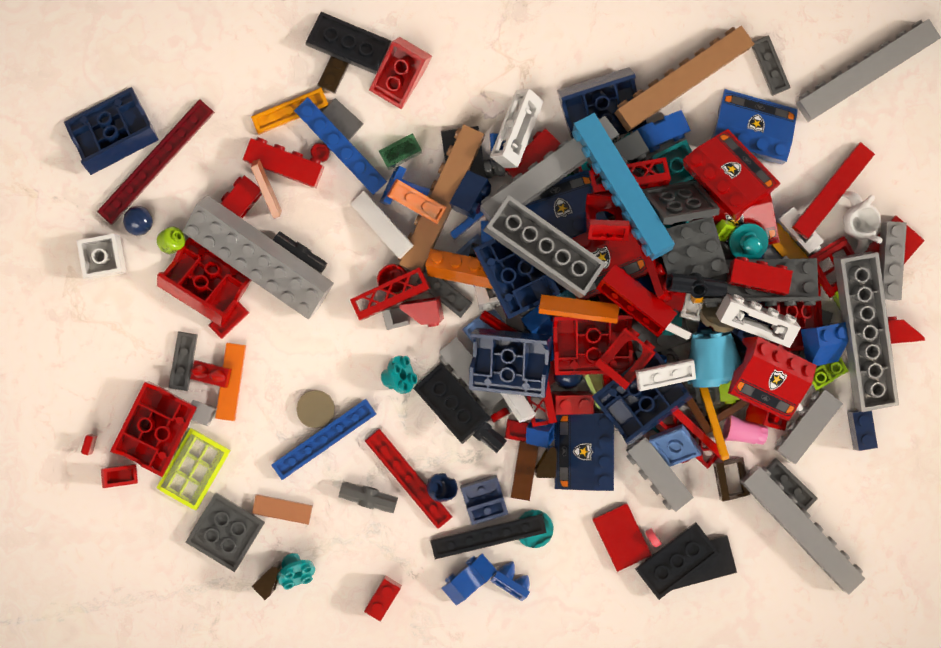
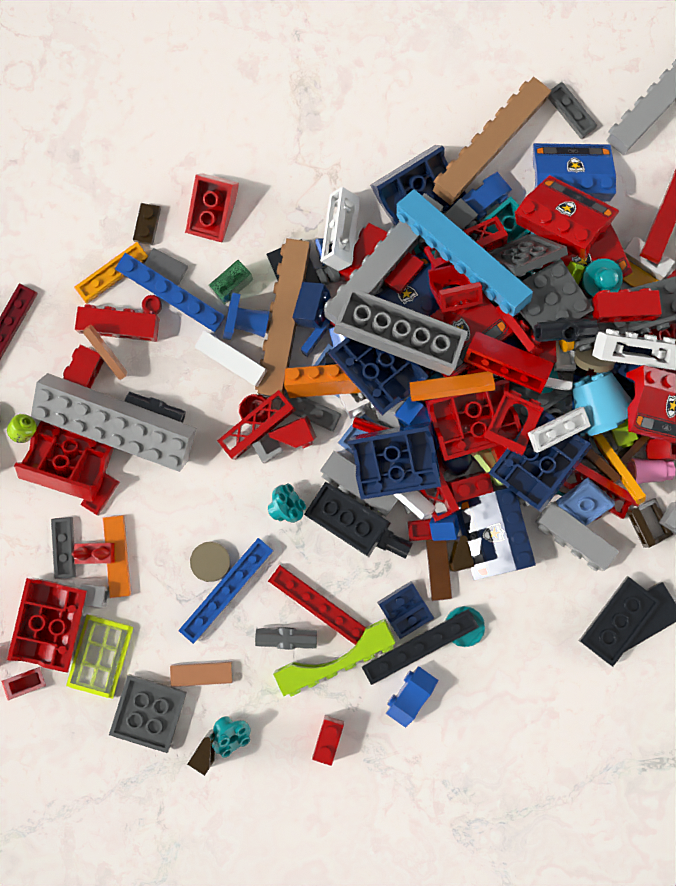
camera: 10 degrees left, 5 degrees down
(348, 42) = (152, 191): black tile -> none
(368, 533) = (298, 675): none -> lime arch
(416, 201) = (258, 324): orange tile -> none
(441, 487) = (359, 608): dark blue hair -> none
(500, 414) = (398, 518): red tile -> none
(504, 579) = (448, 688): blue tile -> none
(565, 187) = (404, 273): none -> red tile
(621, 537) = (556, 611): red tile -> none
(652, 536) = (588, 603): coral tile -> none

